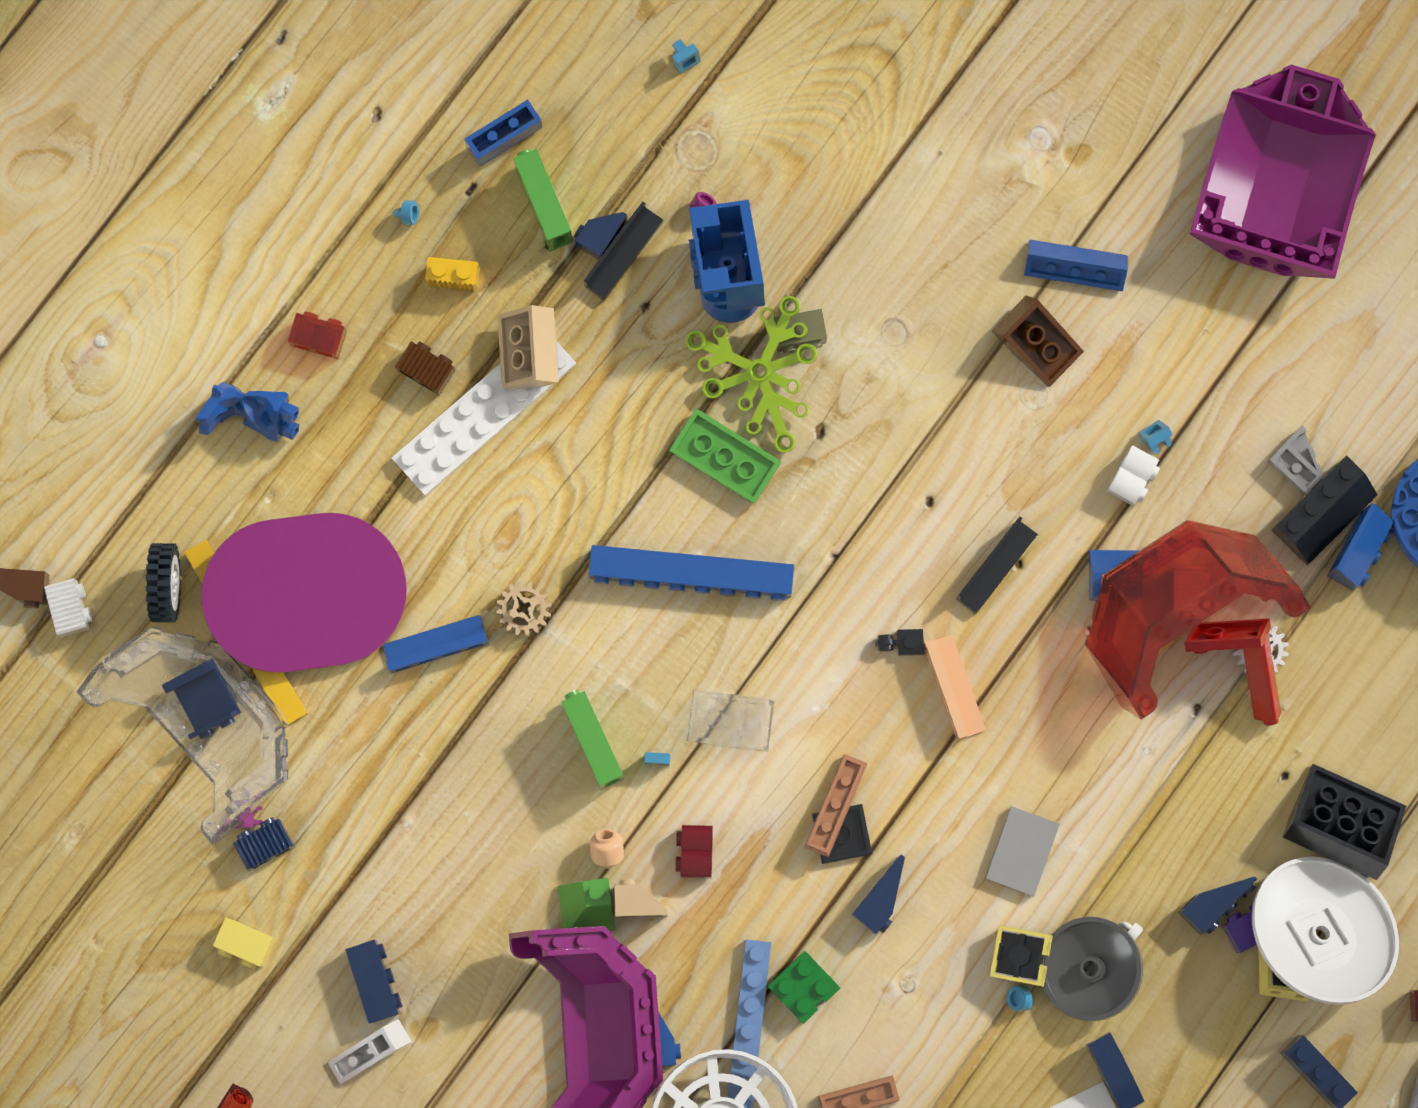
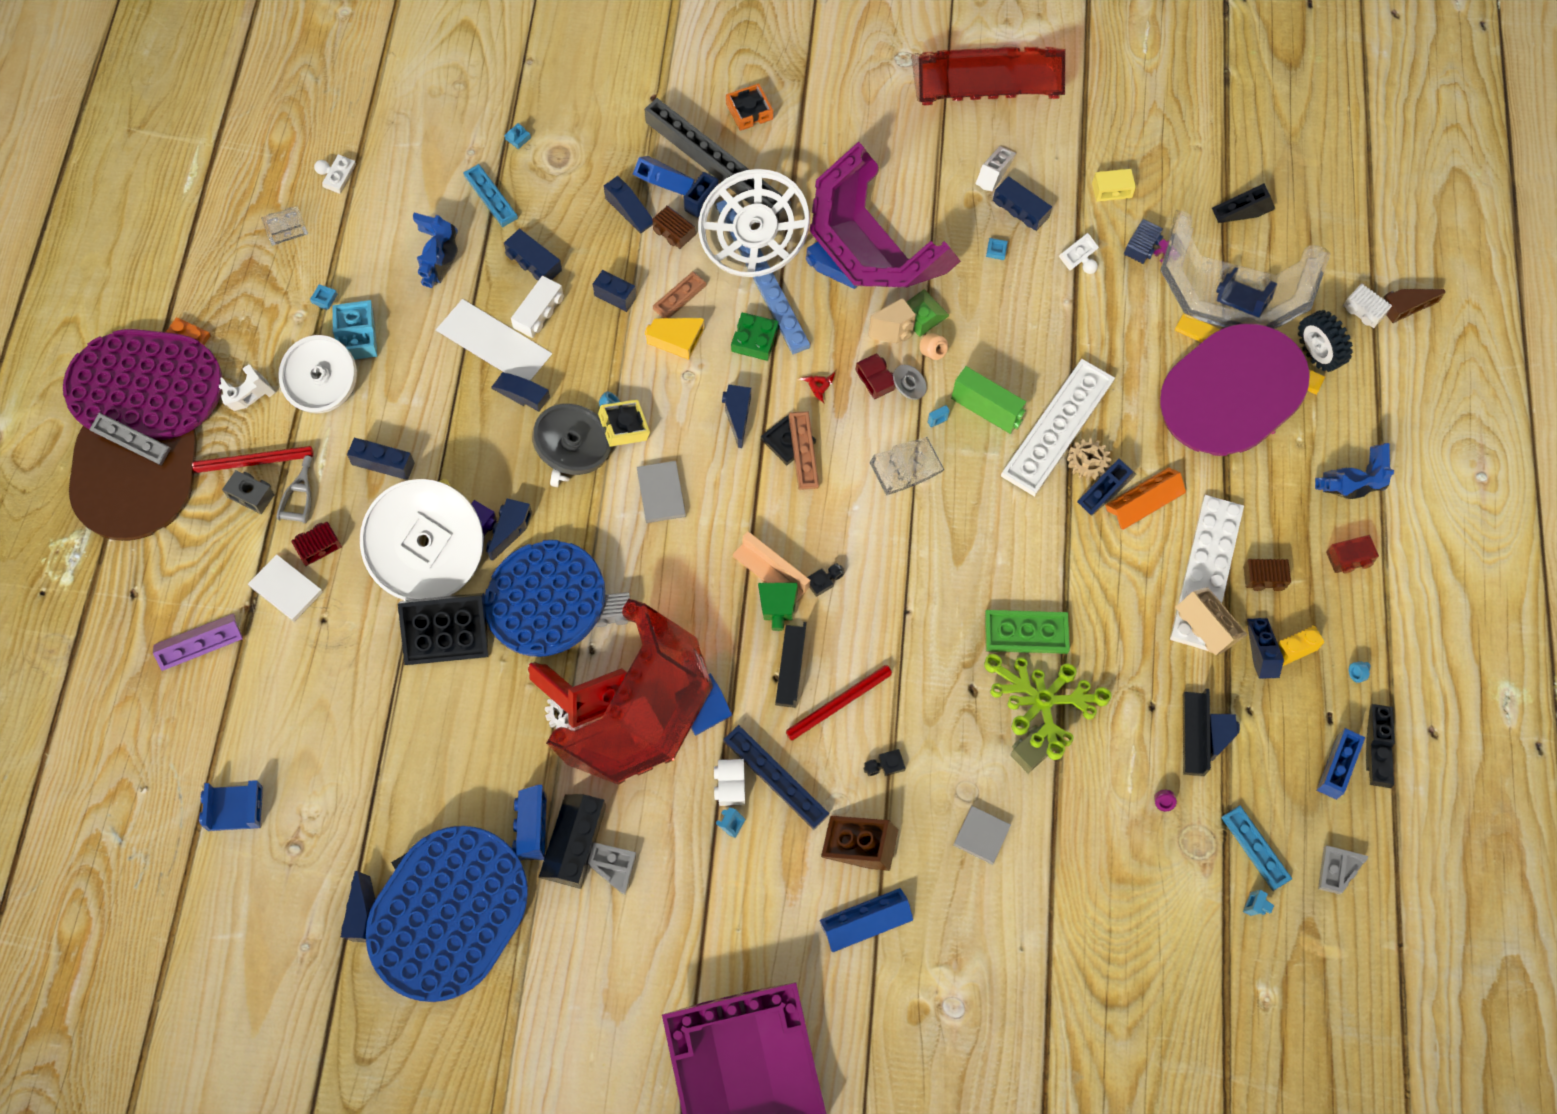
camera: 150 degrees right, 15 degrees down
(109, 819) = (1245, 206): none -> black slope
(350, 874) = (1079, 253): none -> white plate
(435, 644) = (1127, 410): blue panel -> none
(442, 941) = (996, 249): none -> dark azure tile
(448, 128) = (1379, 746): none -> black slope
(487, 295) = (1264, 648): none -> dark blue slope
(490, 530) = (1147, 497): none -> orange panel
(525, 565) = (1107, 487): none -> dark blue slope
(529, 669) = (1057, 427): none -> white plate
(542, 199) = (1279, 730): bright green brick -> none
(579, 42) = (1338, 868): none -> light grey wing
(643, 109) = (1256, 848): none -> dark azure tile
(655, 816) = (909, 382): none -> light grey dish
(691, 571) = (996, 543): blue brick -> none
(726, 260) = (1123, 758): blue brick -> none
(769, 892) = (818, 391): none -> red piece
(896, 1041) = (675, 334): none -> yellow slope
(909, 279) = (982, 835): none -> light grey tile
(955, 404) = (890, 763): none -> black plate
(969, 497) = (838, 702): none -> red axle
(972, 640) = (778, 602): none -> green torso
(1083, 456) = (776, 777): none -> dark blue plate
(1155, 739) = (613, 609): none -> light grey brick
(1220, 791) = (544, 598): none -> blue tile

